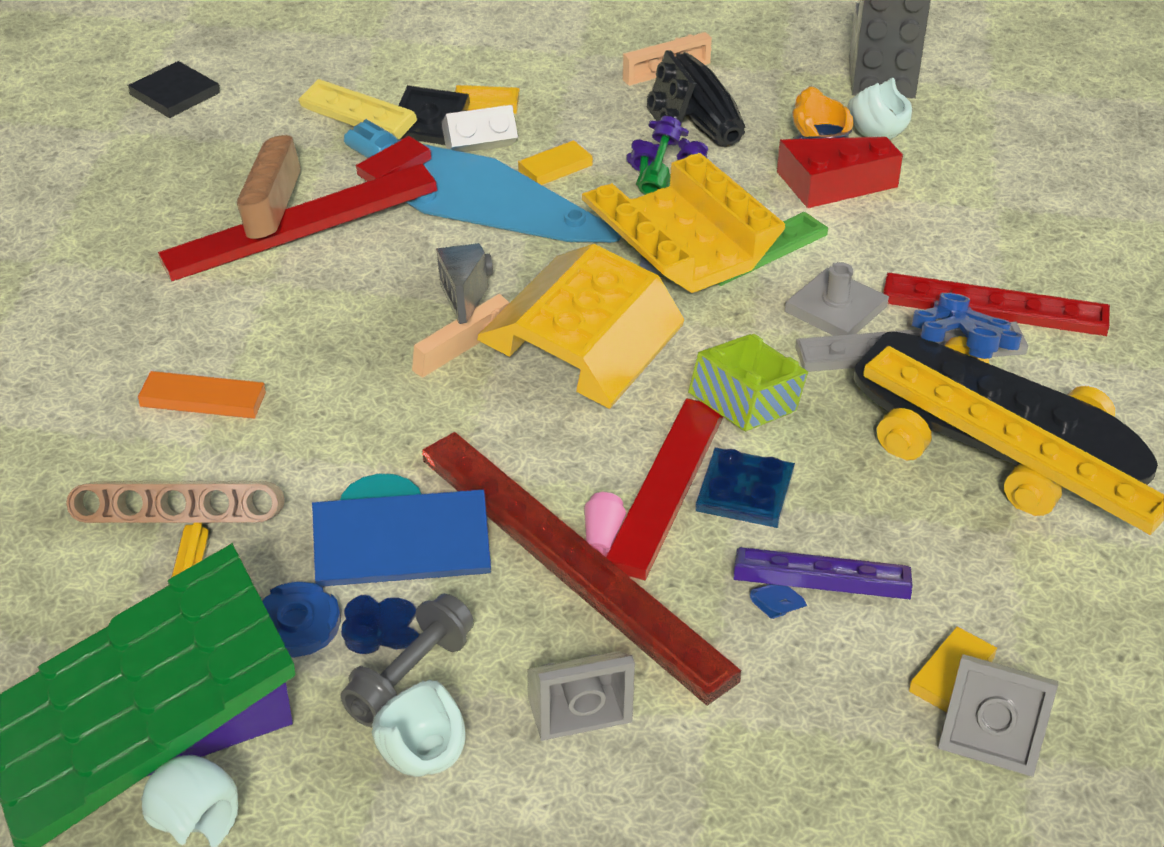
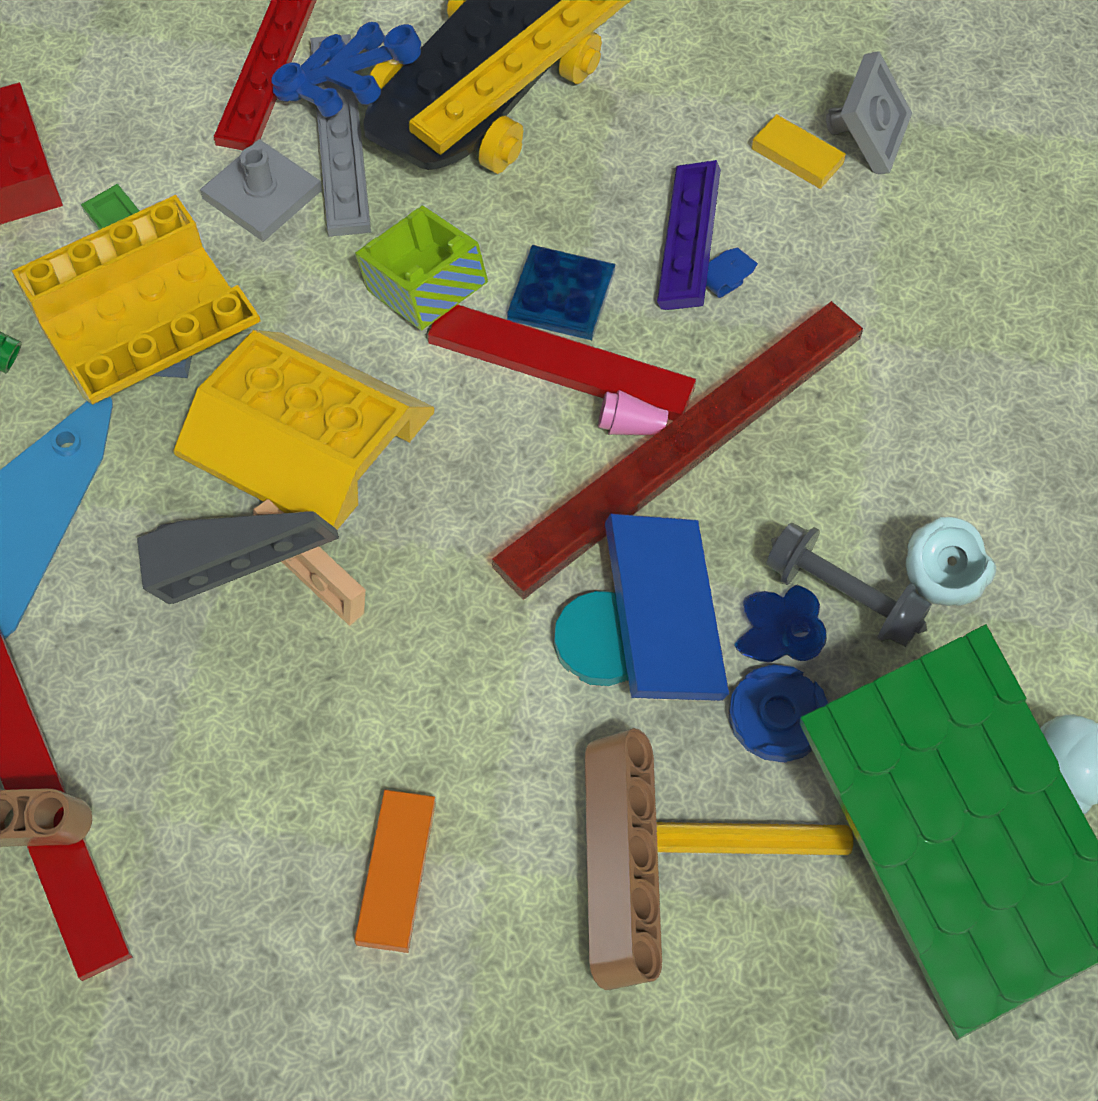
camera: 90 degrees left, 20 degrees up
(582, 694) = (878, 424): light grey slope -> none

